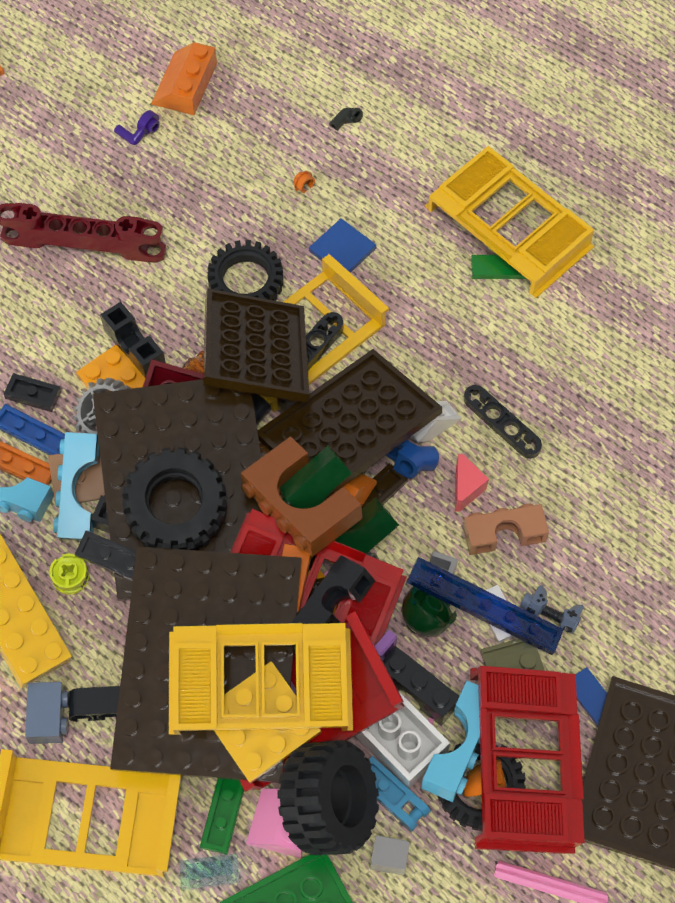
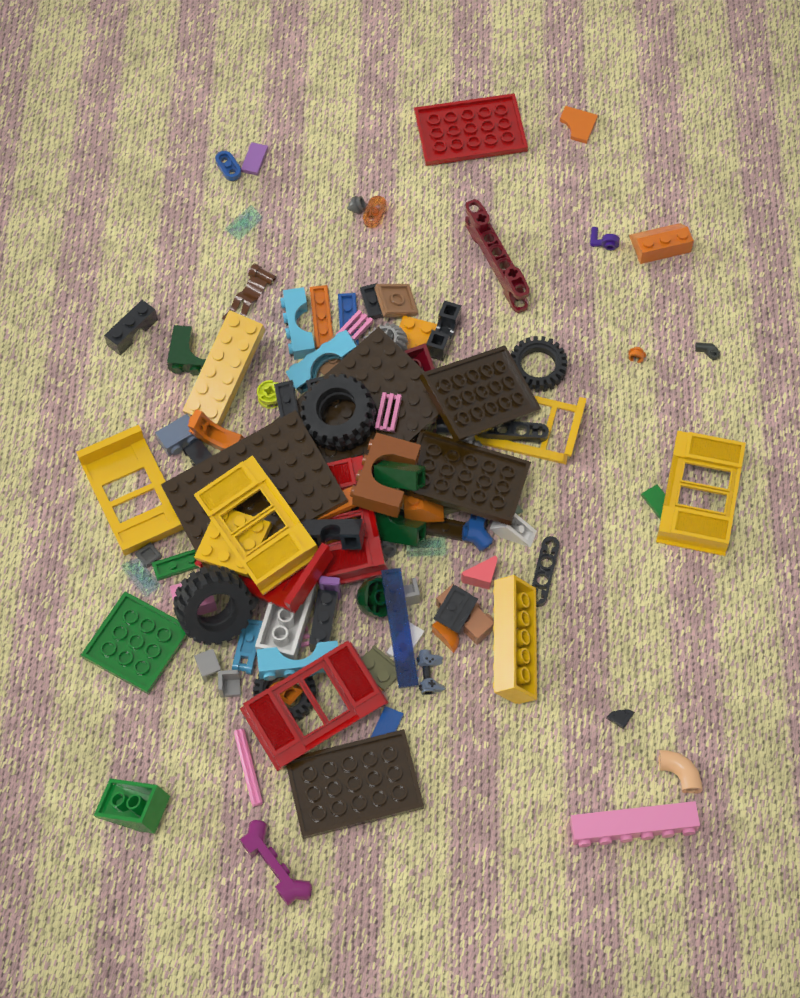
camera: 60 degrees right, 0 degrees up
(49, 413) = (351, 326): none -> bright pink tile
(51, 367) = (396, 300): none -> medium nougat plate
(85, 665) = (211, 433): none -> orange arch
(185, 845) = (148, 555): none -> dark grey tile
(189, 440) = (391, 397): none -> bright pink tile
(344, 245) = (604, 406): blue tile -> none
(401, 511) = (430, 547): none -> clear light blue slope
(430, 844) = (229, 683): none -> light grey panel
(503, 531) = (455, 608): none -> black plate
(515, 564) = (446, 635): none -> orange brick
(576, 495) = (515, 640): none -> yellow brick

